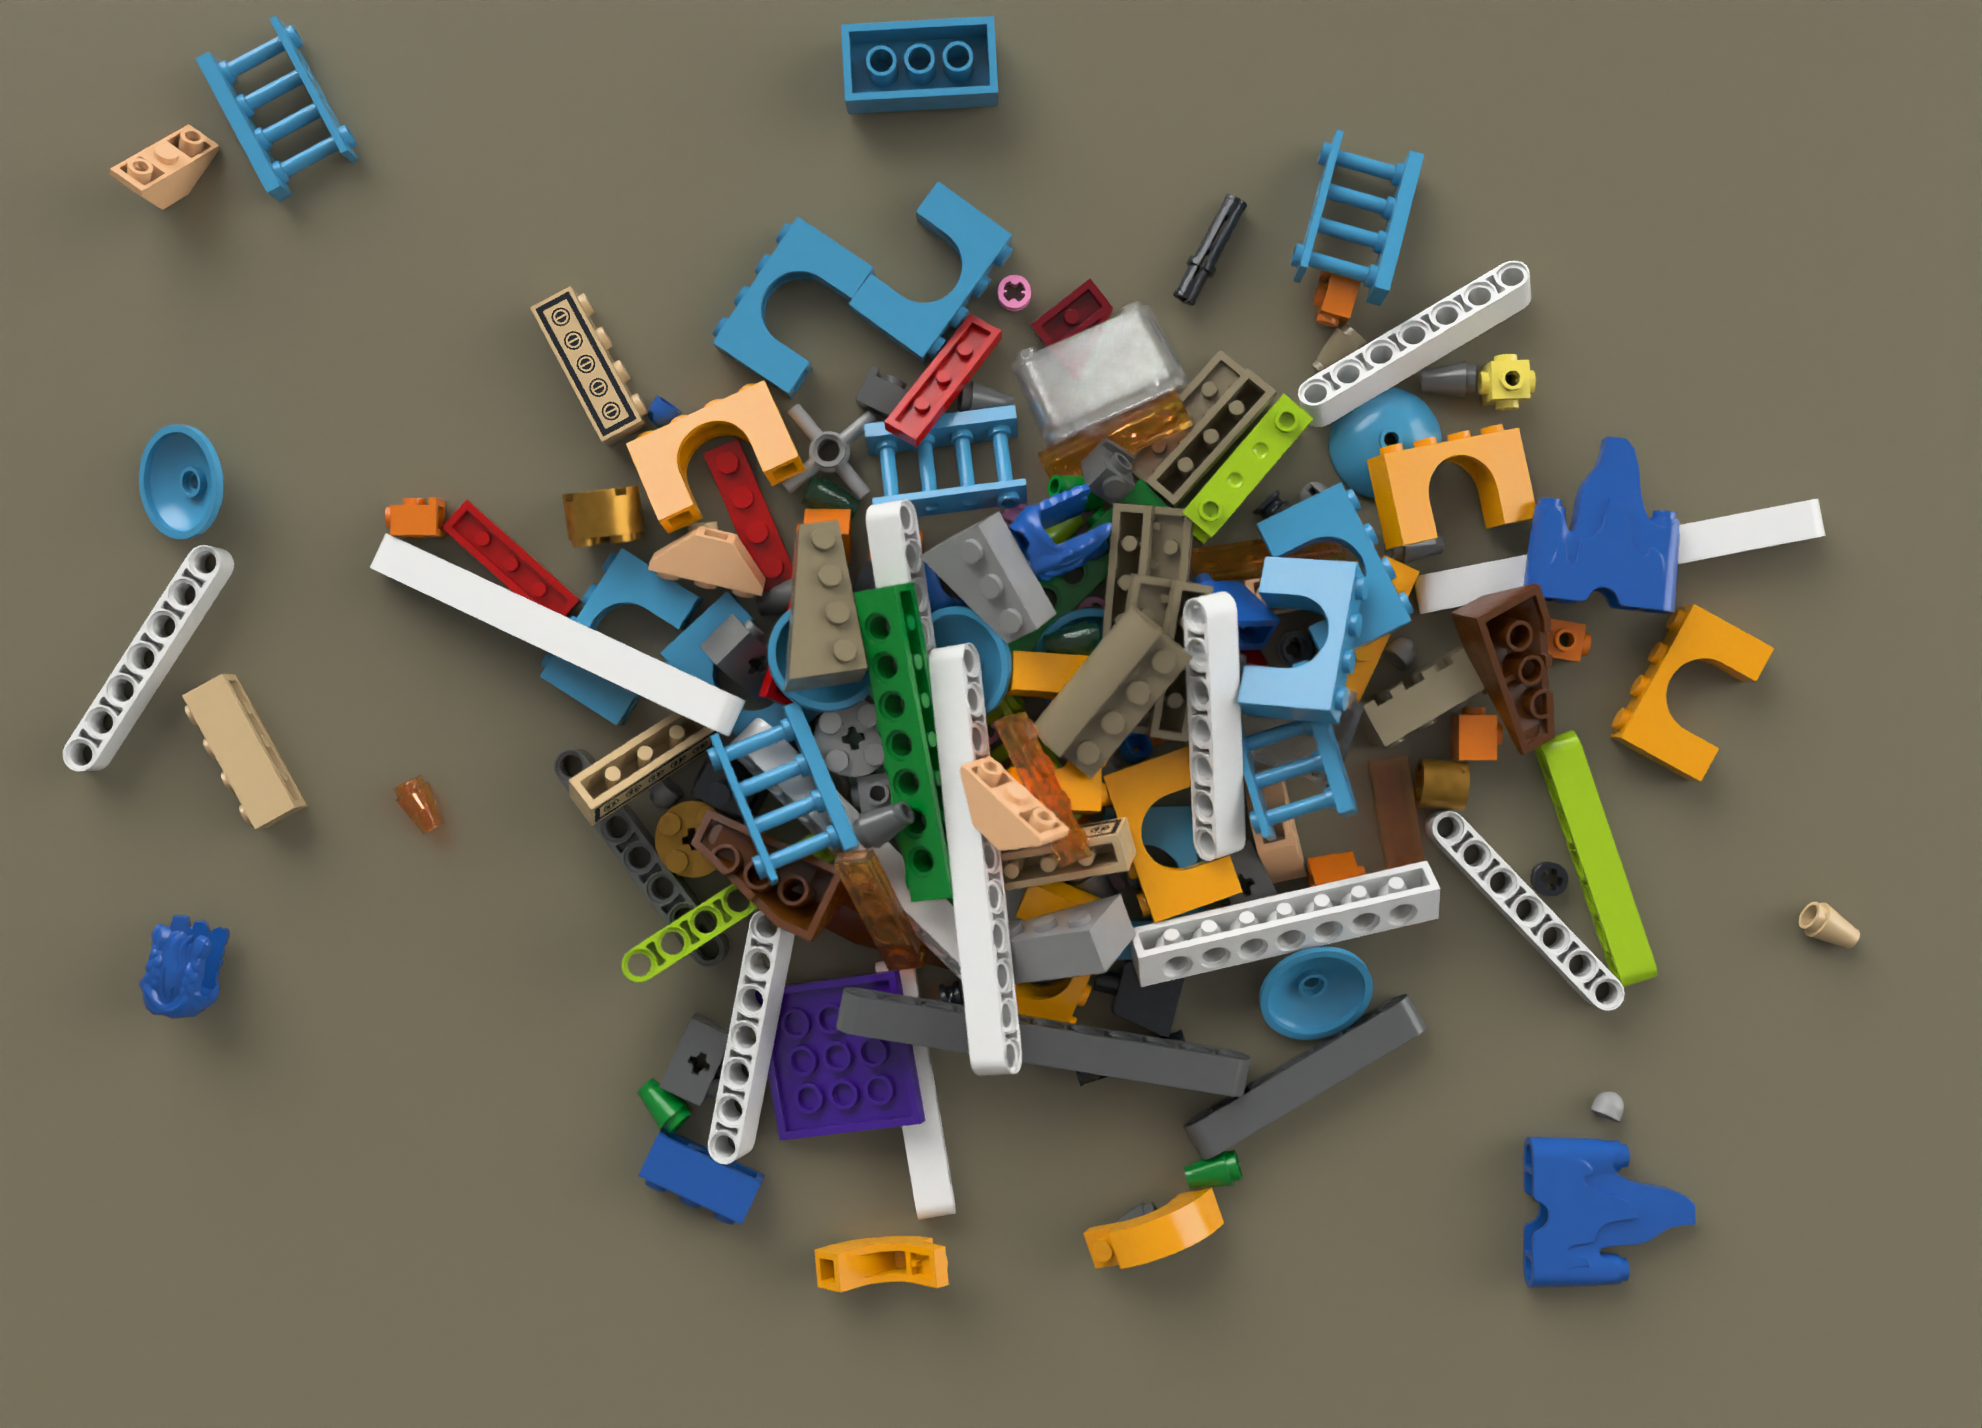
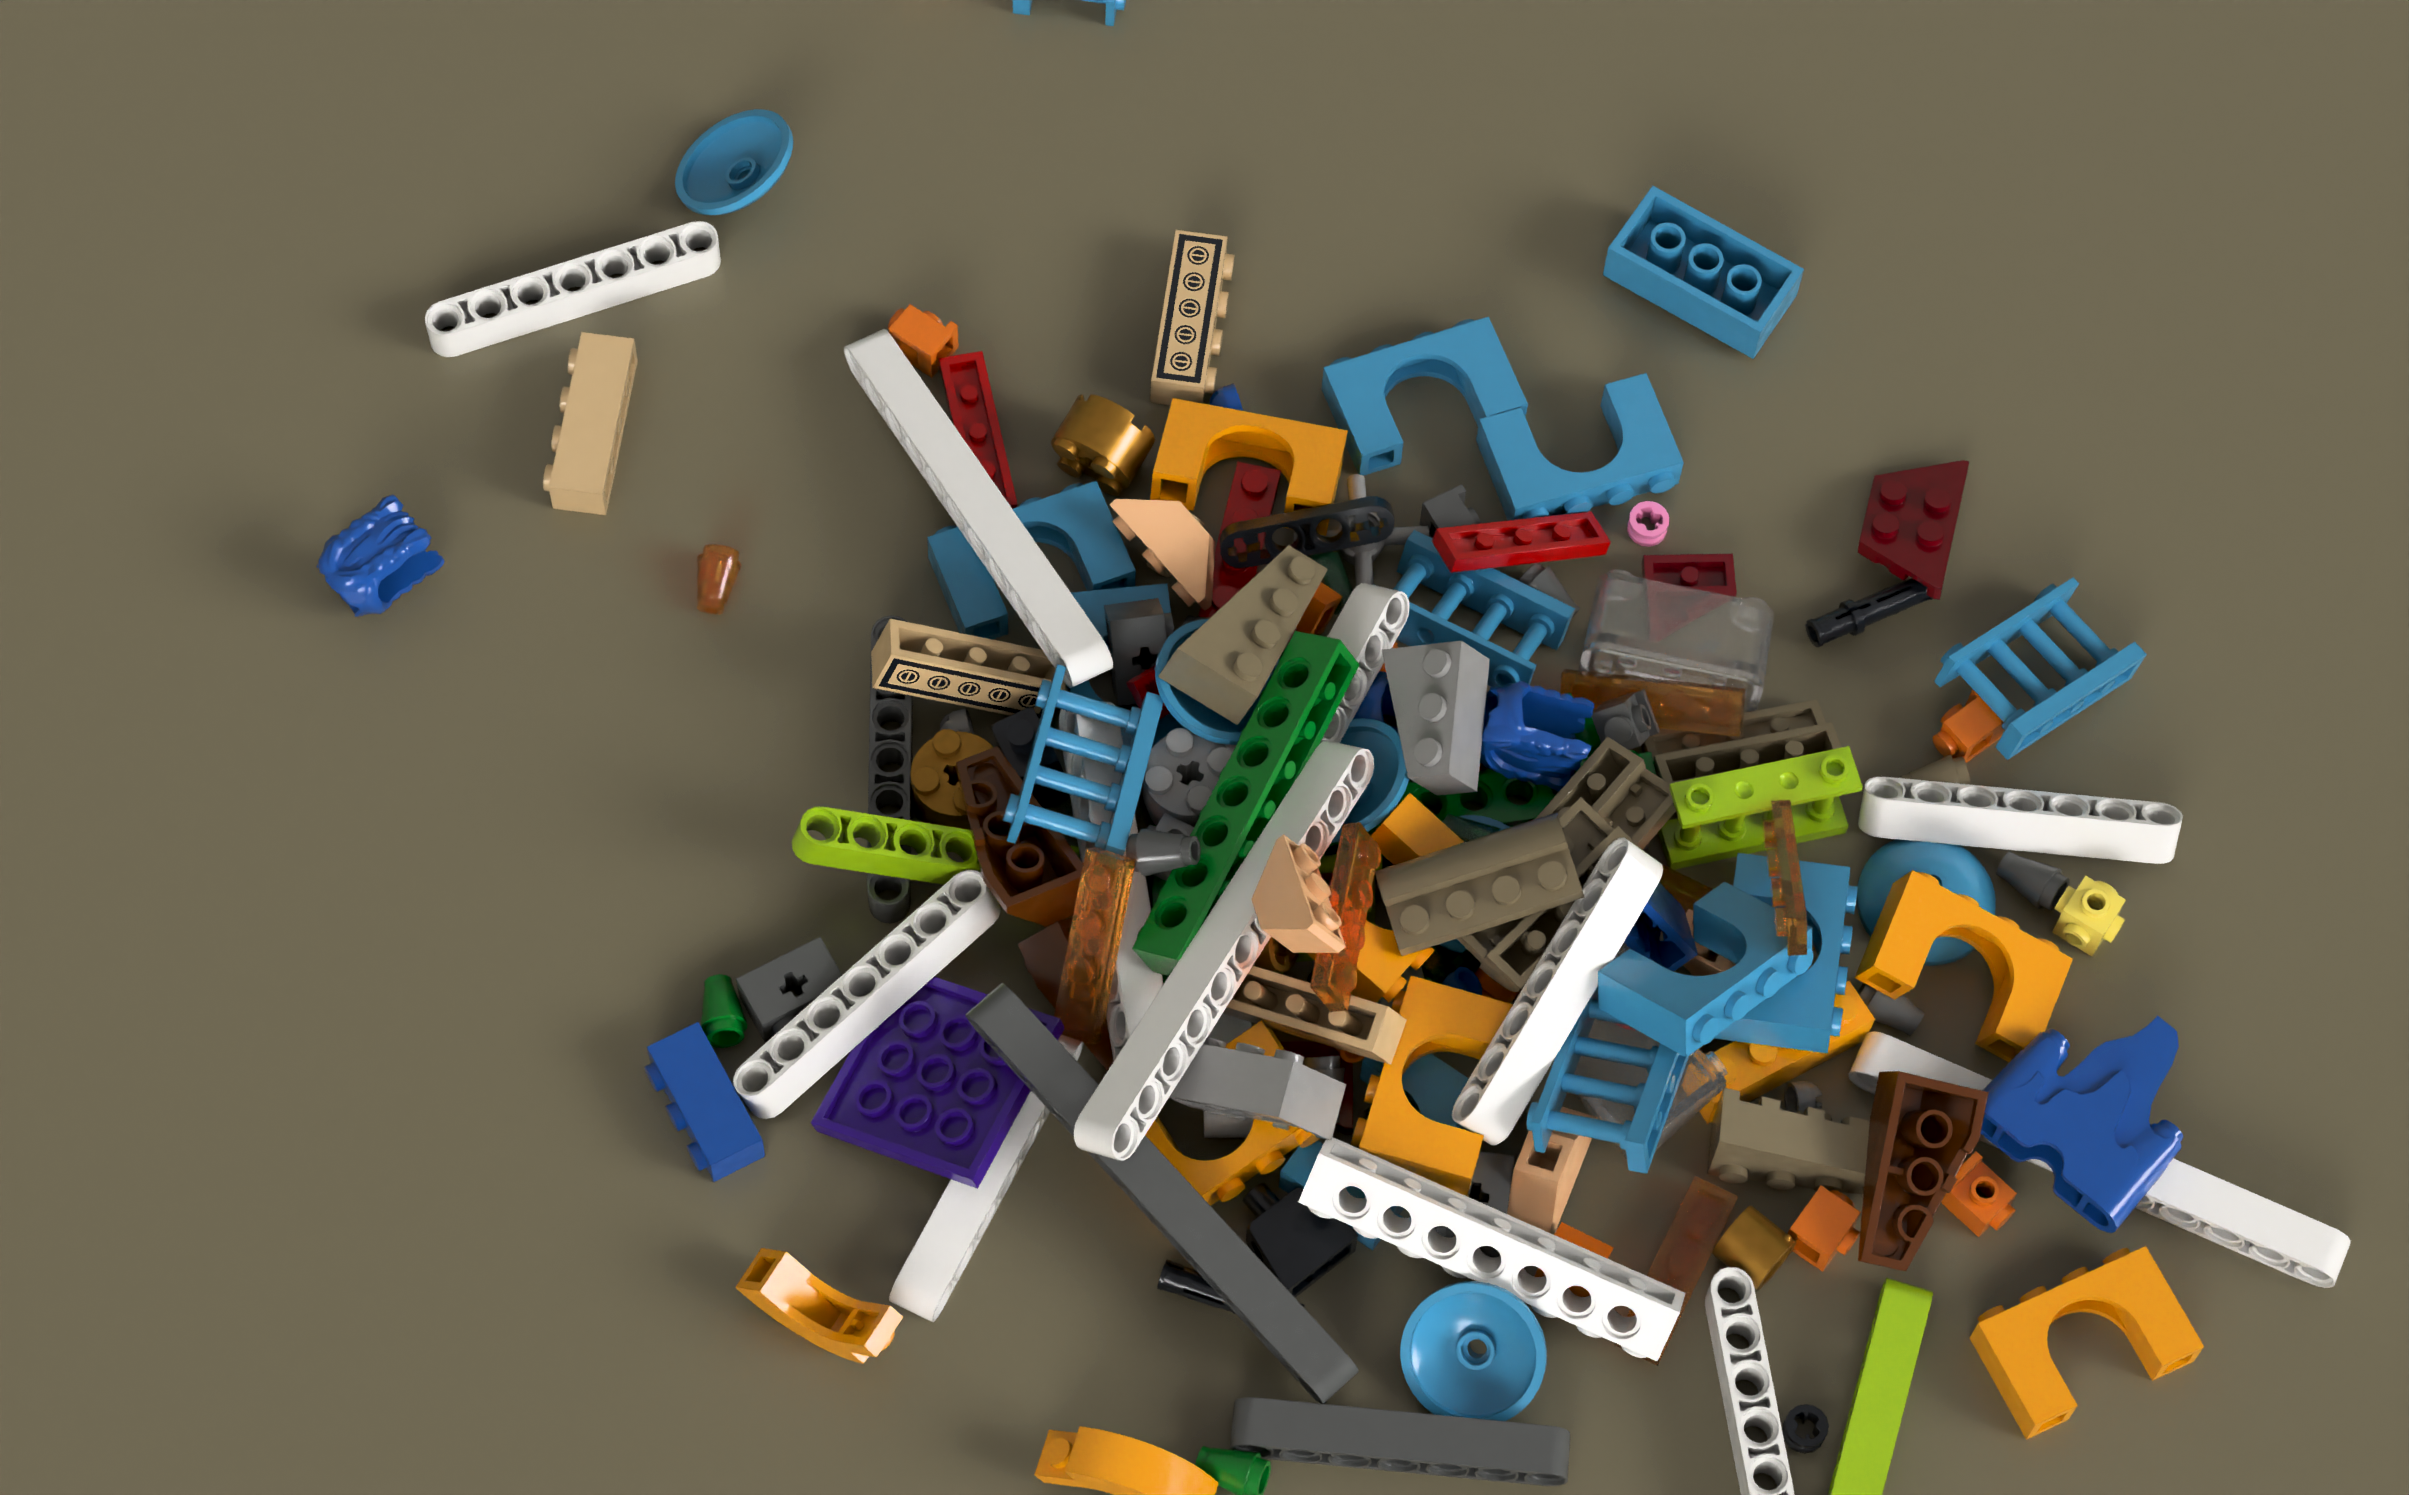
camera: 30 degrees right, 25 degrees down
(799, 489) = (1304, 524): none -> black beam
(1196, 160) = (1914, 522): none -> dark red wing
(1322, 546) = (1787, 887): none -> clear orange plate

